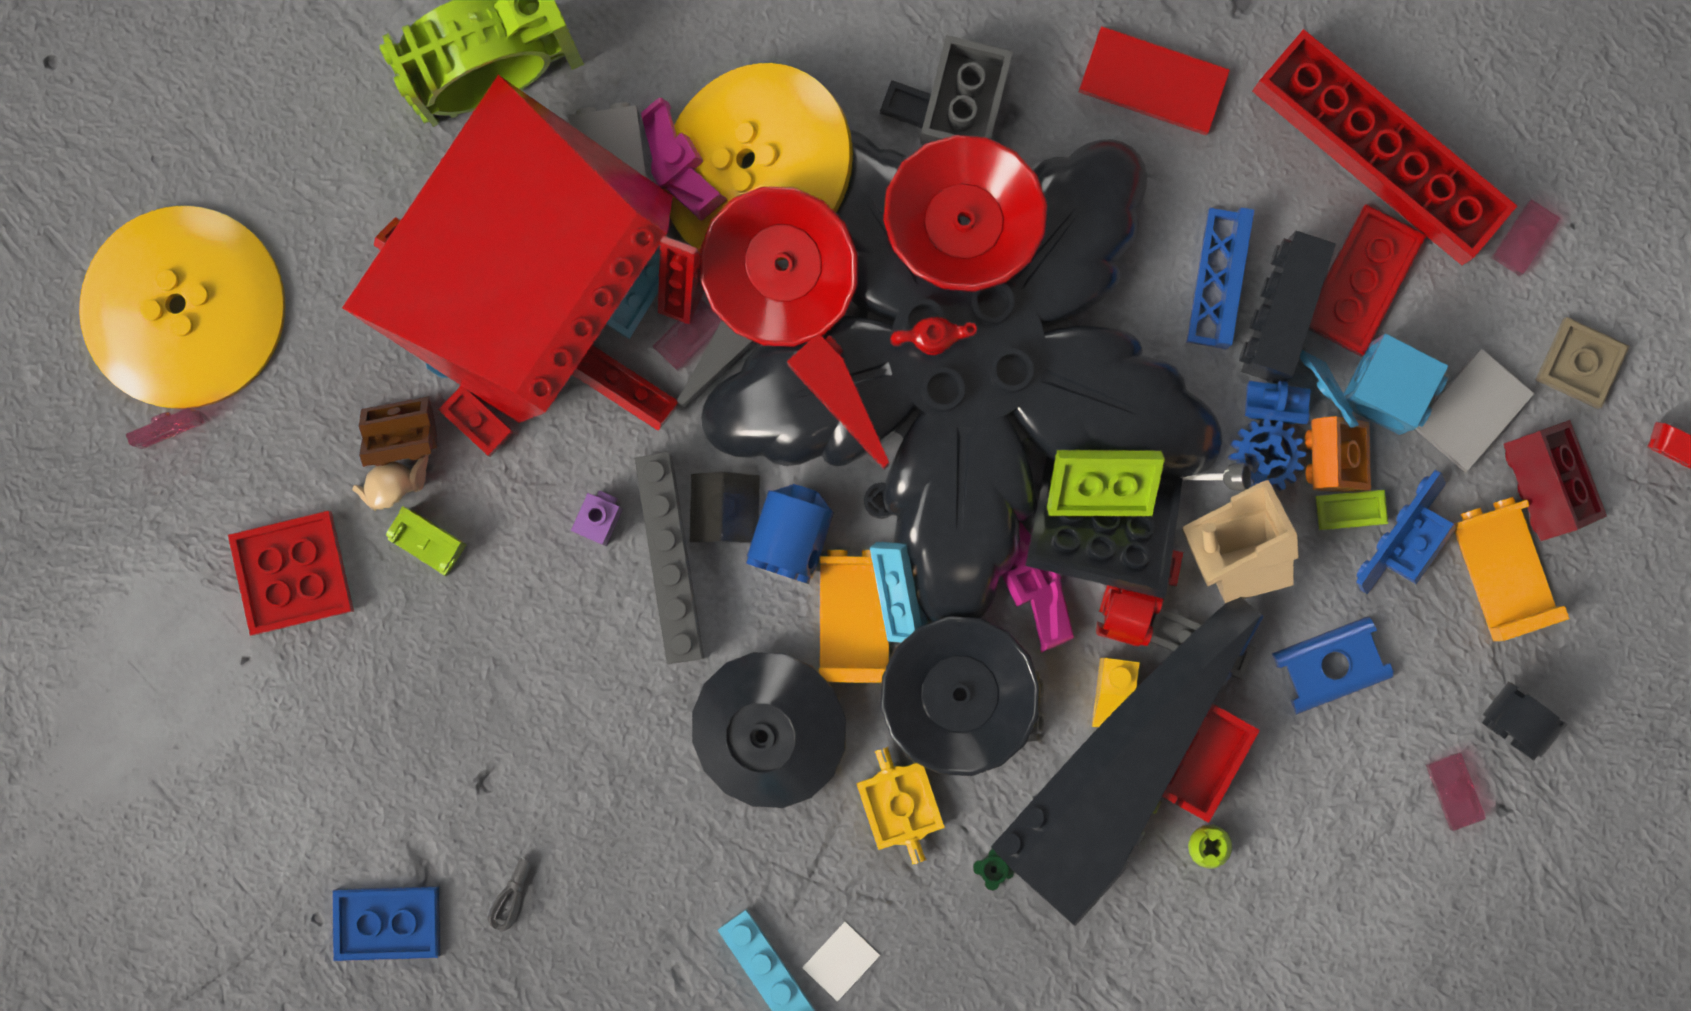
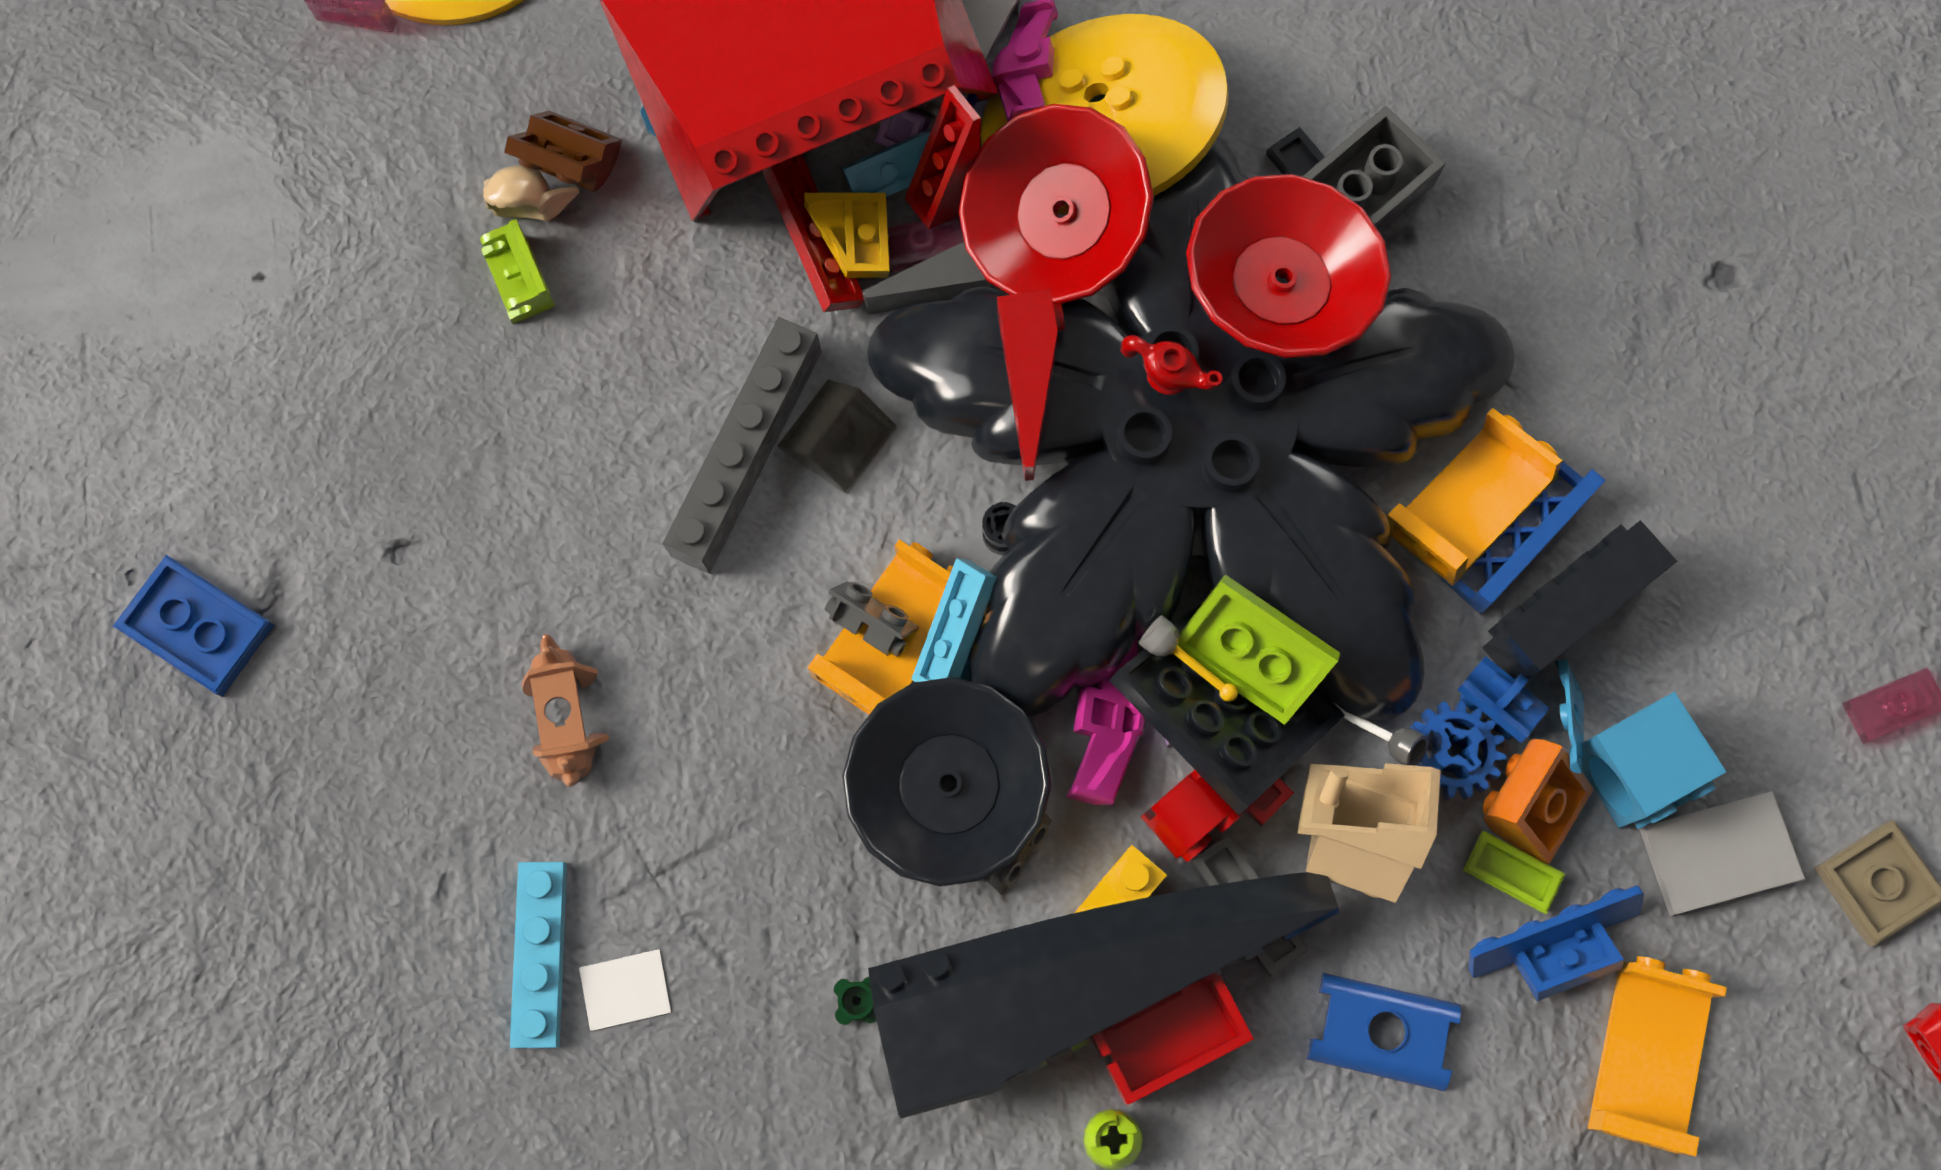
camera: 30 degrees right, 10 degrees down
(290, 573) = (363, 219): red plate -> none
(475, 421) = (650, 190): red plate -> none
(516, 885) = (349, 675): flat silver piece -> none
(597, 517) = (701, 358): medium lavender brick -> none
(639, 359) = (853, 230): none -> yellow wing
(653, 797) = (565, 748): none -> nougat piece
(791, 532) = (885, 496): blue cylinder -> none
(794, 709) = (758, 692): black dish -> none
(819, 617) = (854, 605): none -> dark grey hinge
(900, 805) = (803, 861): yellow plate -> none
(1040, 516) = (1163, 640): none -> hinge
(1154, 80) = (1577, 293): red tile -> none
(1175, 274) = (1475, 497): none -> light orange panel
(1364, 279) = (1680, 636): red tile -> none
(1384, 148) = (1792, 509): red brick -> none
(1554, 481) = (1771, 989): dark red slope -> none

